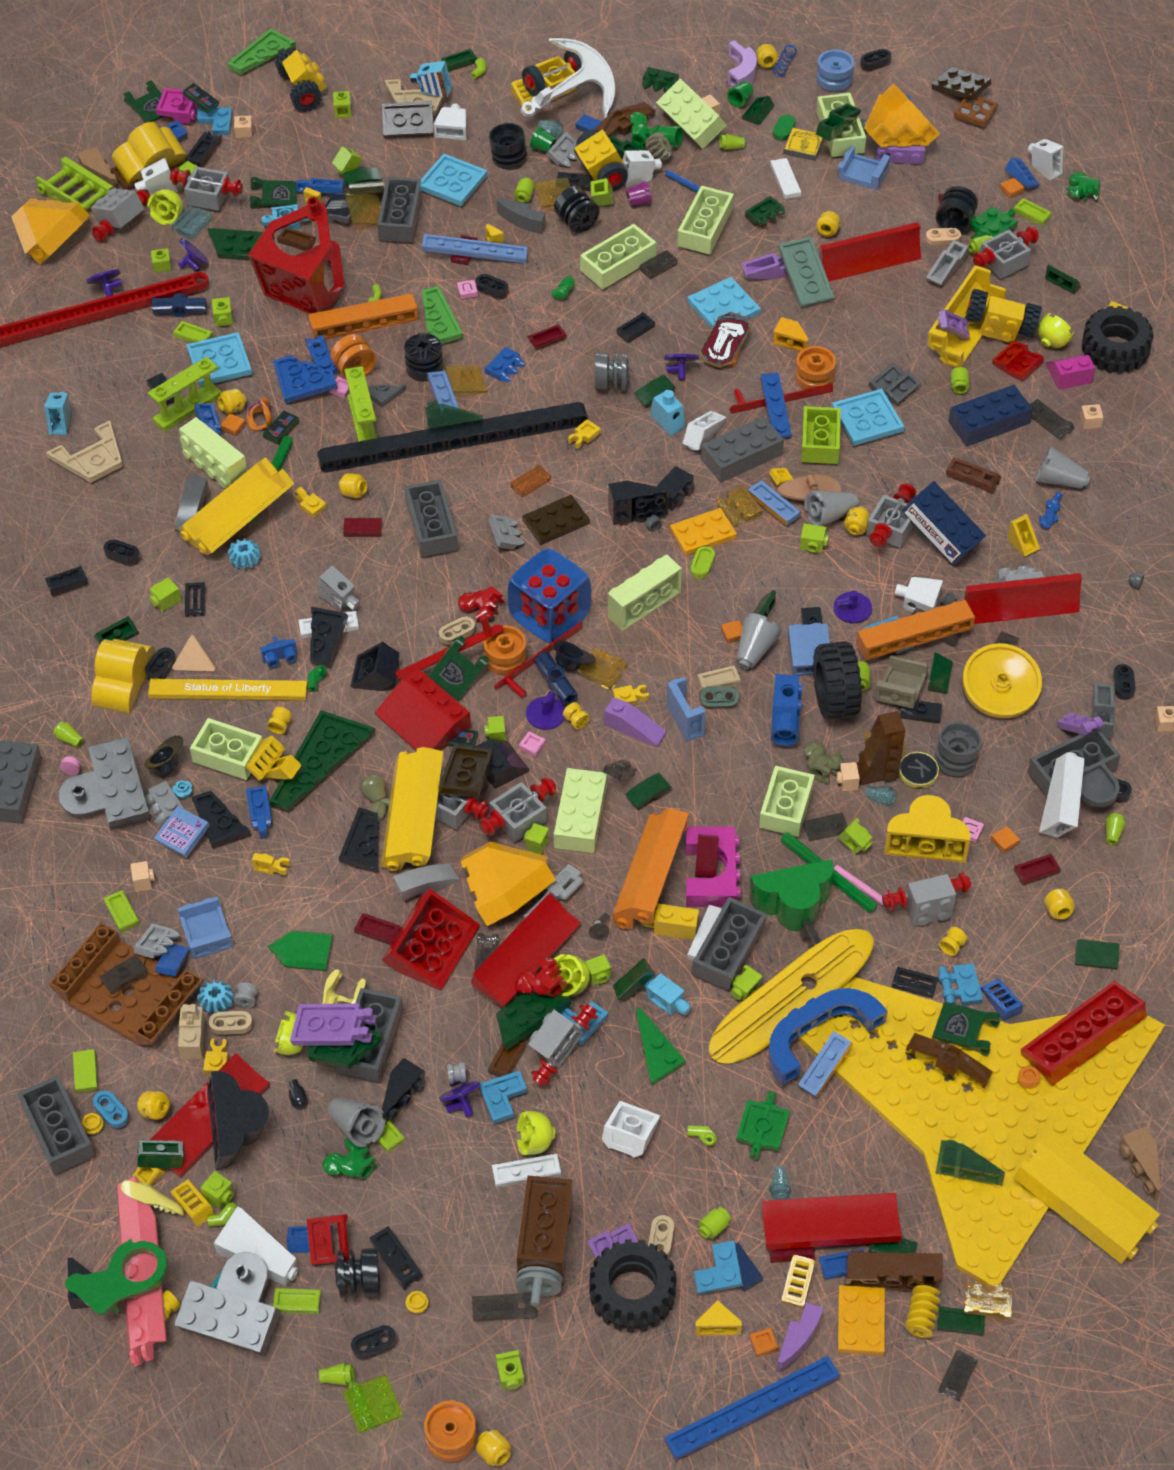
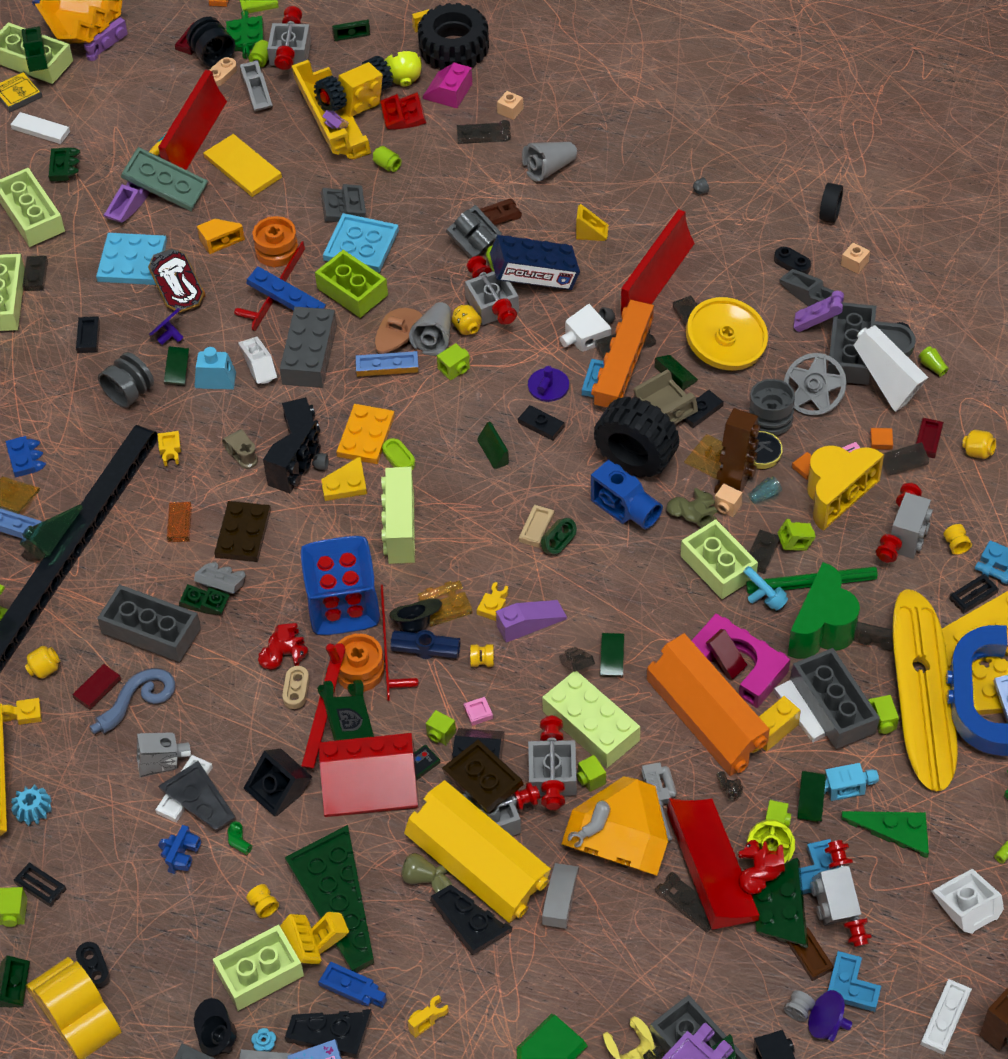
camera: 50 degrees left, 0 degrees up
(193, 657) = (116, 929): light nougat piece -> none
(227, 689) = (177, 925): yellow tile -> none
(345, 550) = (114, 715): none -> sand blue plant
(376, 928) = (577, 971): dark red tile -> none
(431, 940) = (631, 933): red slope -> none
(480, 536) = (203, 601): none -> dark green slope
(485, 857) = (596, 824): none -> light grey arm
(535, 1133) = (917, 983): neon yellow cylinder -> none
(545, 712) = (451, 678): dark purple shield -> none
(547, 336) = (27, 403): dark red tile -> none
(621, 469) = (241, 449): none -> dark tan piece
(650, 547) = (345, 481): none -> yellow wing
(690, 722) = (555, 571): medium blue panel -> none
(732, 631) = (495, 482): orange tile -> none
(744, 504) = (365, 384): clear yellow plate -> none
(755, 639) = (526, 469): light grey cone -> none
(780, 475) = (363, 340): yellow tile -> none
(787, 858) = (775, 598): none -> medium azure piece
(802, 643) = (568, 440): medium blue brick -> none
(828, 224) = (126, 132): yellow head -> none
(861, 885) = (869, 562): bright pink bar -> none
(863, 170) = (92, 73): medium blue panel -> none
(869, 306) = (242, 165): none -> yellow tile
(943, 469) = (473, 231): none -> dark grey plate
(990, 415) = (444, 164): dark blue brick -> none
(997, 864) = (905, 459): none -> clear smoke plate
(1008, 763) = (816, 383): none -> light grey wheel
(1023, 572) = (632, 254): light grey plate -> none
(1050, 516) = (583, 197): blue animal -> none

